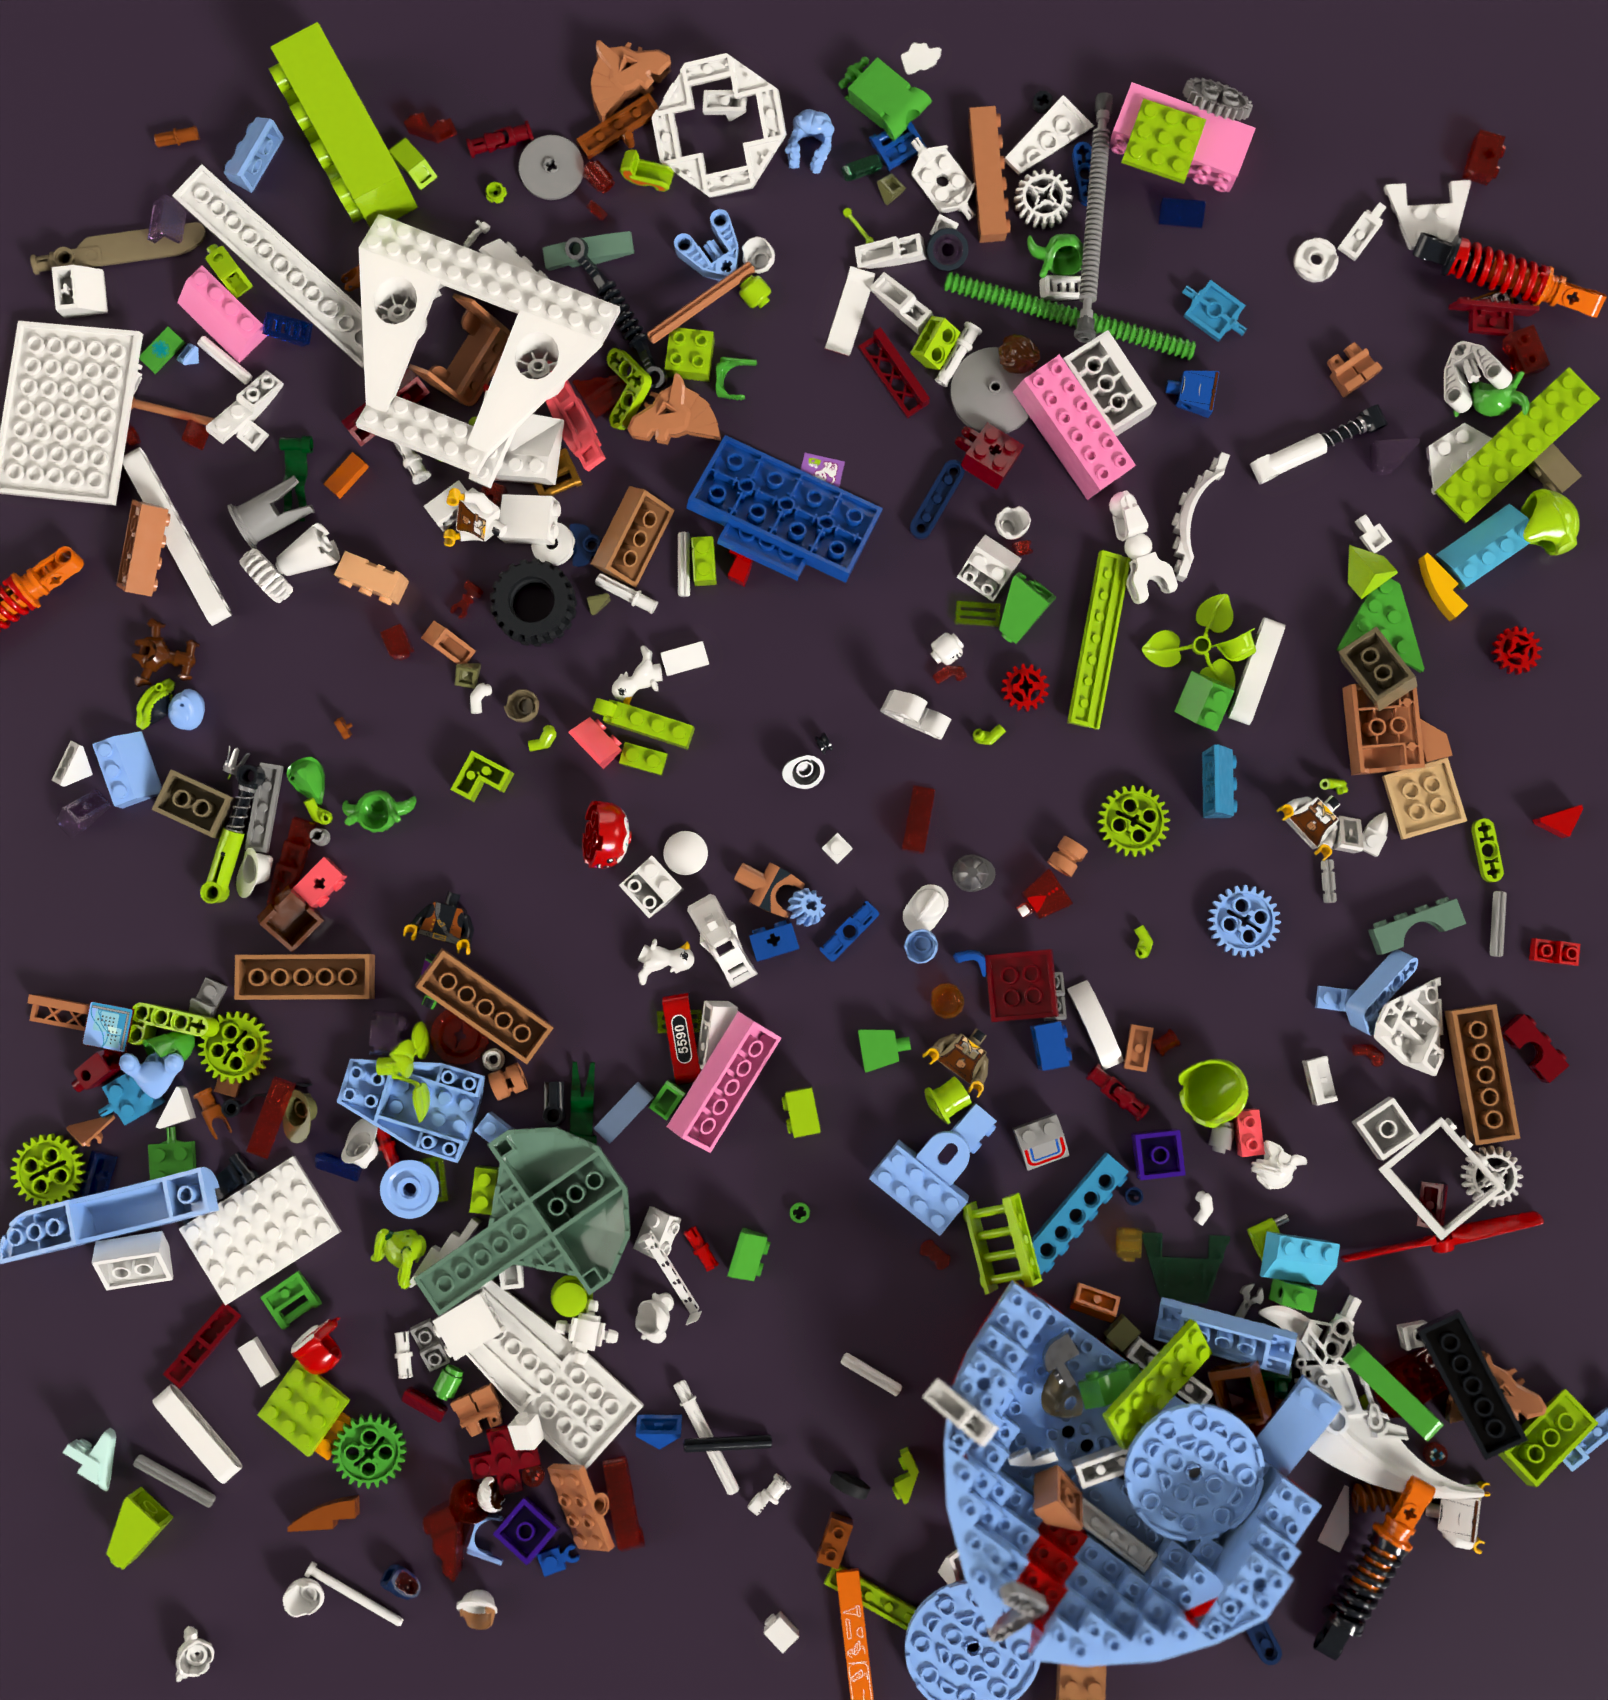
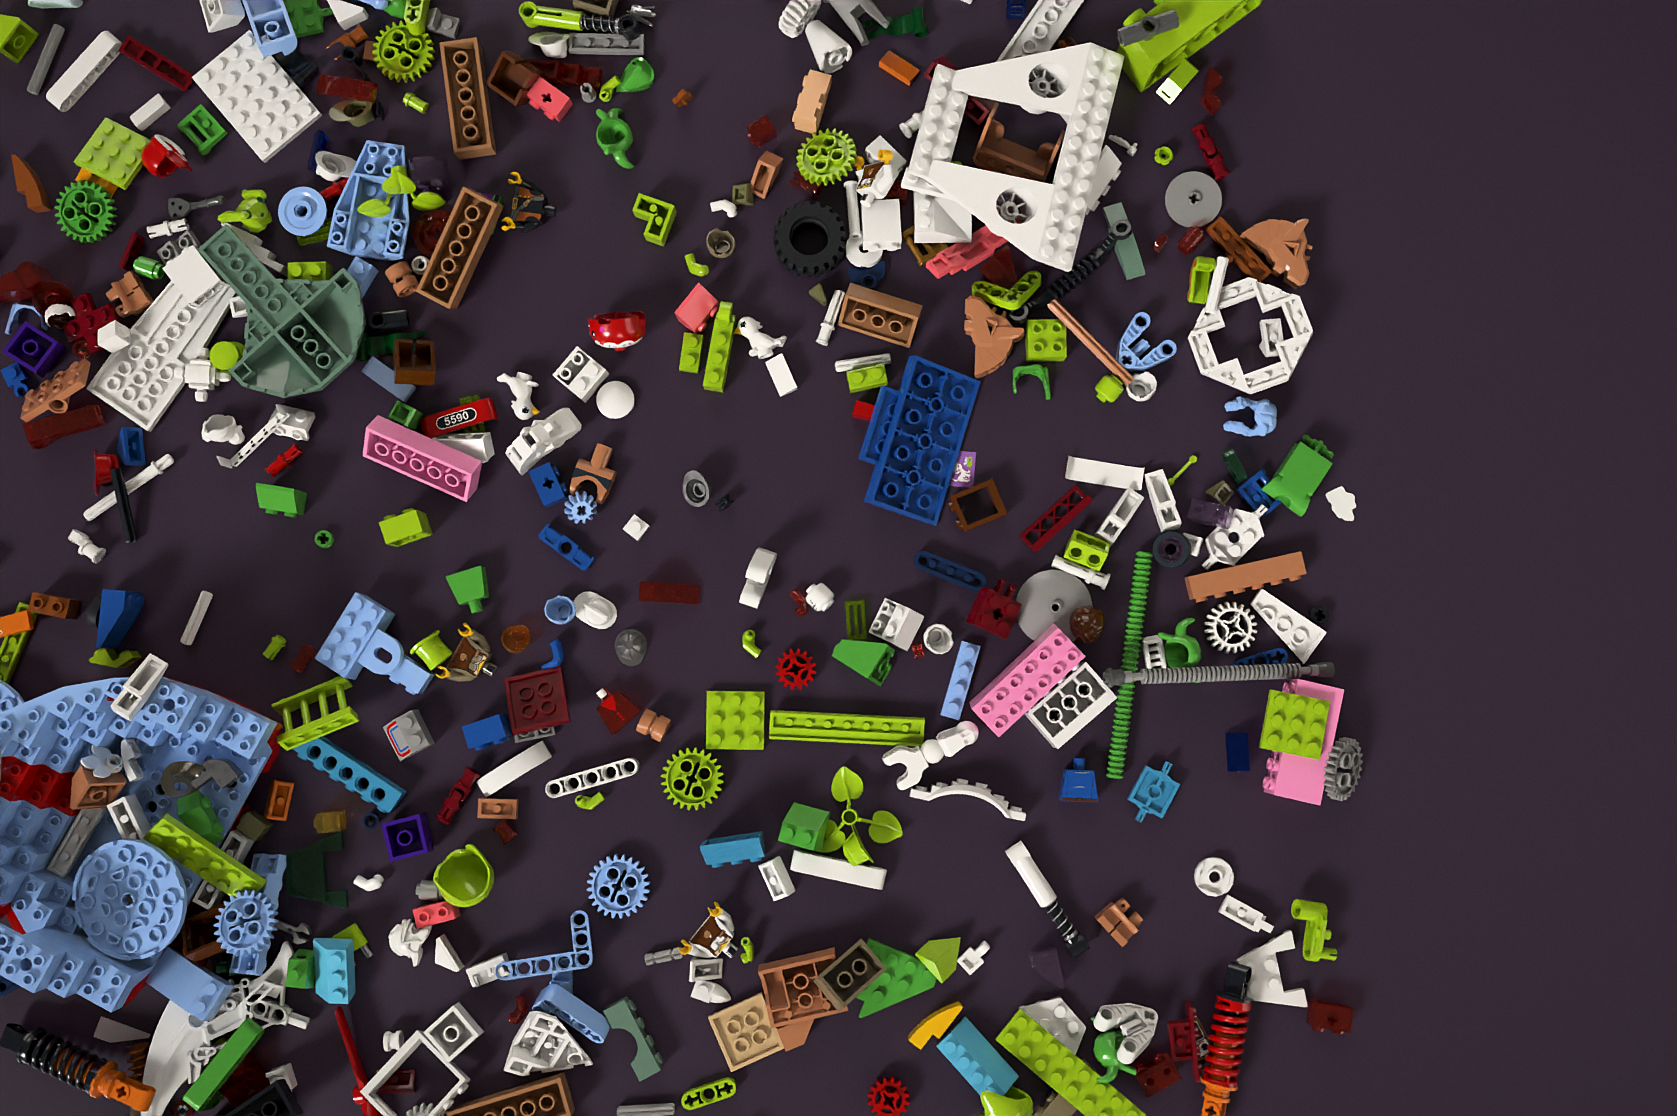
camera: 85 degrees right, 0 degrees up
(298, 1041) = (418, 104): none -> lime pin
(361, 186) = (1159, 24): none -> dark grey piece
(380, 1328) = (188, 206): none -> dark grey piece
(424, 578) = (826, 157): none -> lime gear
(504, 549) = (853, 210): none -> white pin
(615, 1074) = (416, 367): none -> reddish brown piece
(656, 153) = (1216, 284): none -> white axle
(676, 1459) = (104, 464): none -> red piece
(853, 1462) = (117, 616): none -> blue slope
(860, 437) = (994, 496): none -> reddish brown window
(914, 200) = (1210, 514): none -> clear purple brick
(918, 1285) = (274, 647): none -> lime pin
(1032, 1487) = (102, 762): none -> white plate
(1061, 506) = (960, 680): none -> light blue plate
(1073, 764) = (735, 720): none -> lime plate
(1120, 923) = (583, 779): none -> white beam
(1257, 742) = (777, 878): none -> white slope
(1257, 1340) = (249, 939): none -> light blue gear
(1298, 1128) = (446, 955): none -> white slope
(1318, 1001) = (554, 959): none -> light blue beam
(1386, 1200) = (393, 1040): none -> white wheel
(1388, 158) = (1315, 930): none -> lime piece

